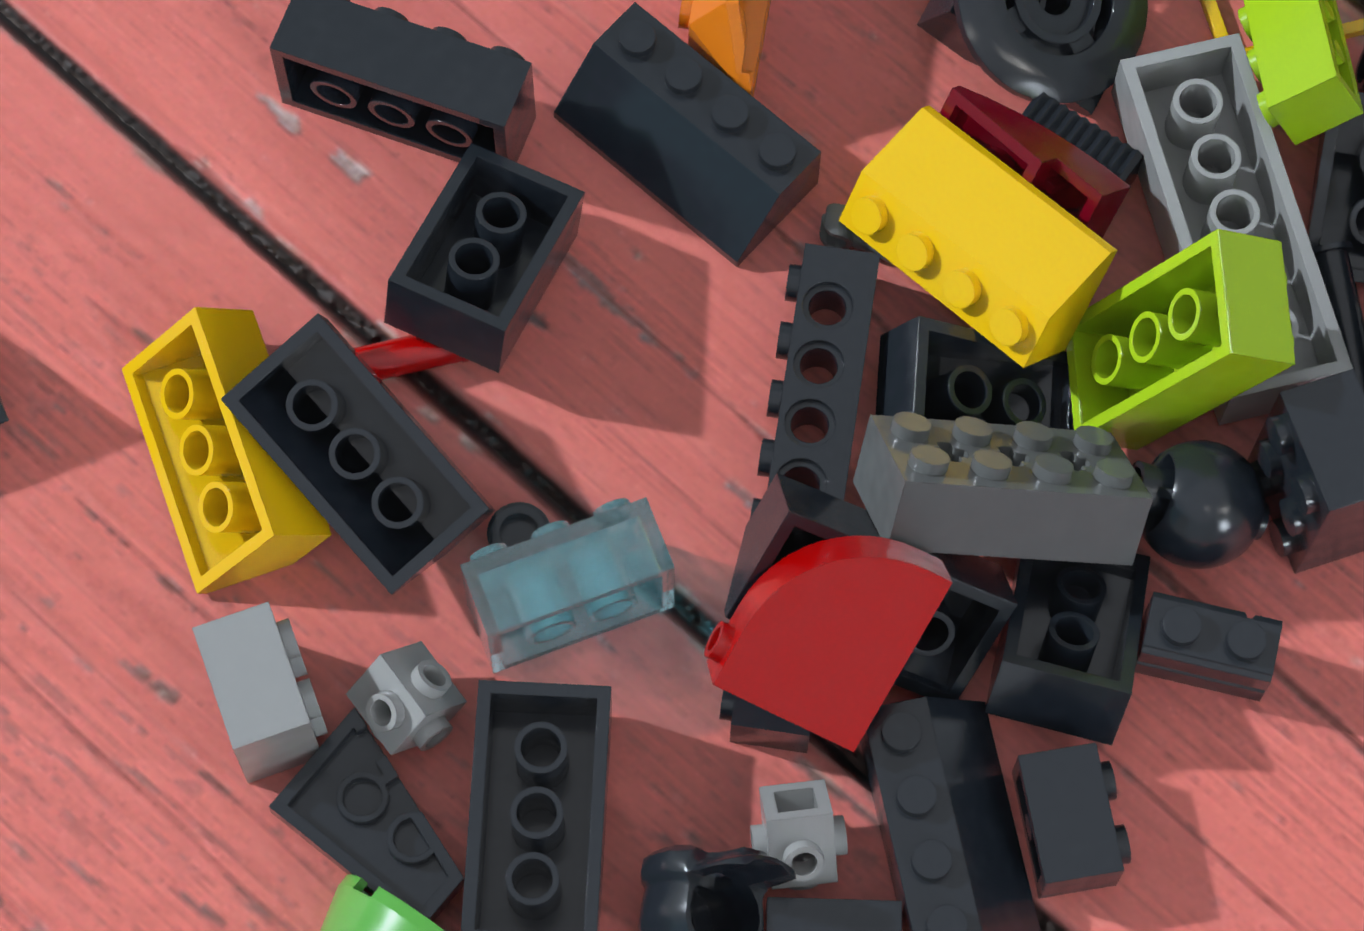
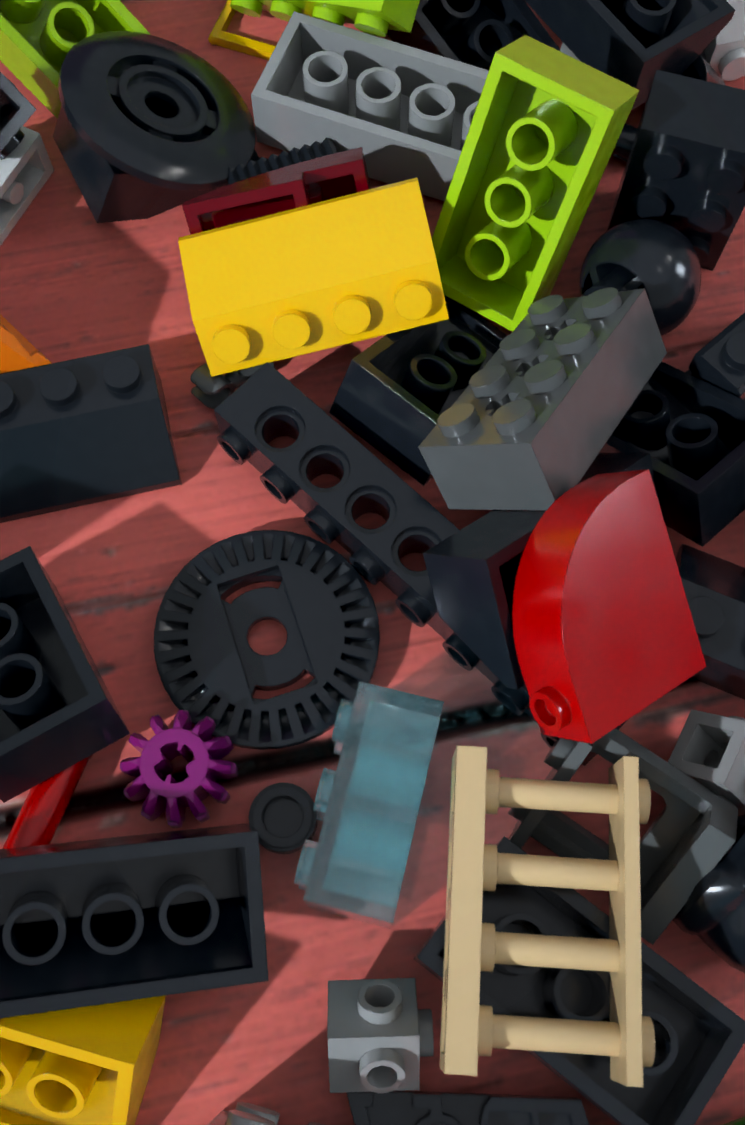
camera: 55 degrees left, 0 degrees up
(492, 411) = (156, 764): none -> magenta gear
(511, 702) = (475, 947): none -> tan fence
(616, 378) = (206, 650): none -> black piece
(710, 826) = (676, 848): none -> dark grey window

